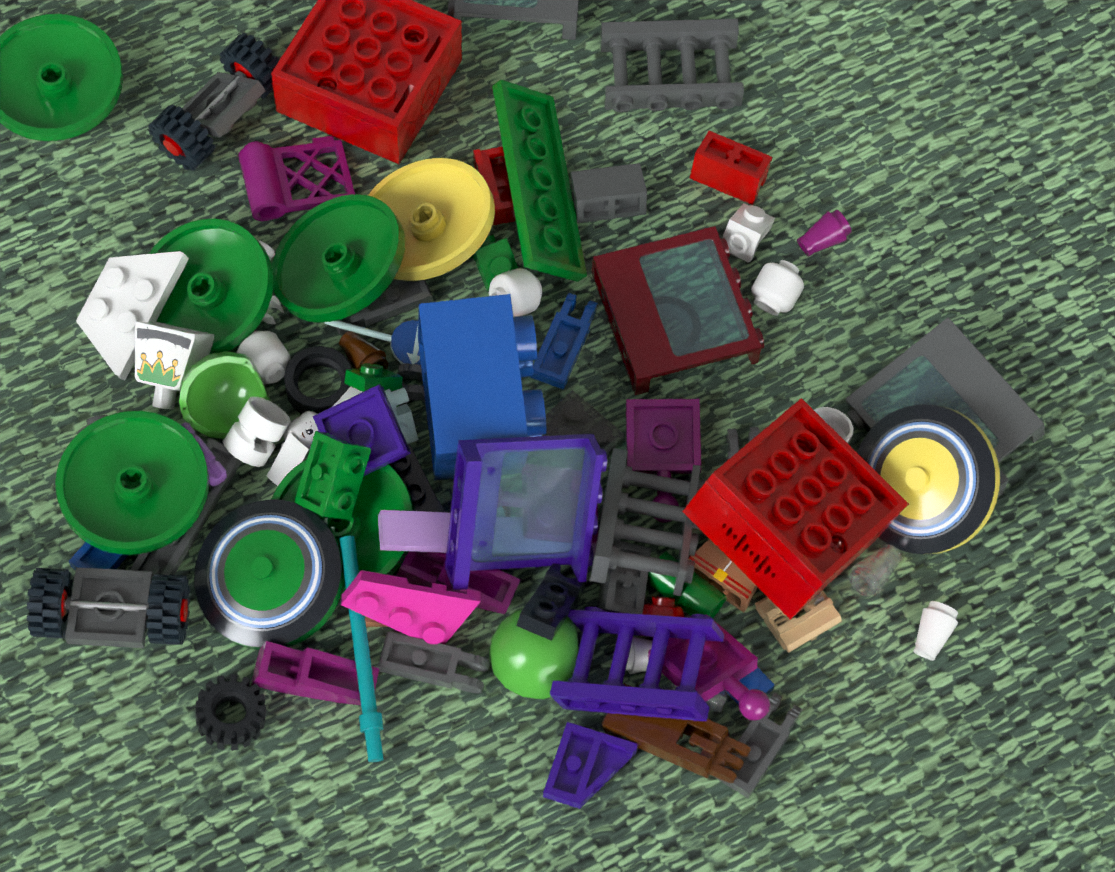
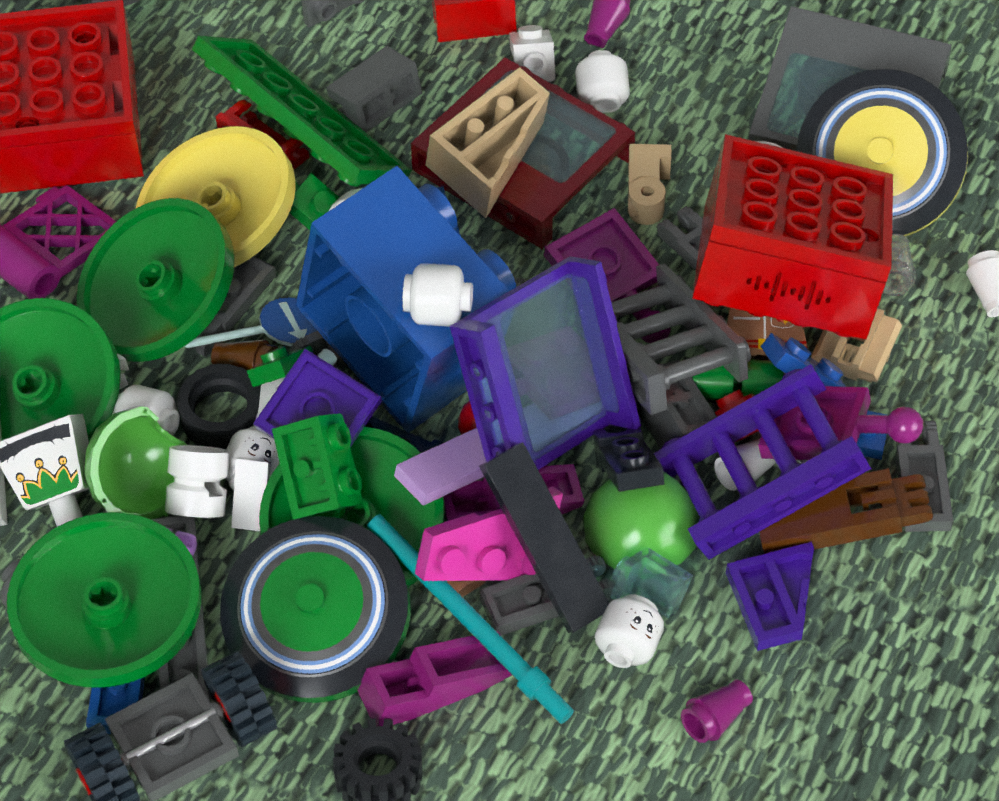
camera: 30 degrees left, 10 degrees down
(443, 626) = (545, 537): none -> black tile
(462, 727) = (629, 631): none -> white head
(464, 411) = (436, 294): none -> white head
(478, 821) = (713, 712): none -> magenta cone
(507, 700) = (653, 578): none -> clear light blue bracket
(640, 293) = (488, 139): none -> tan wedge
(732, 611) = (794, 355): none -> blue plate
(745, 388) = (645, 191): none -> tan leg

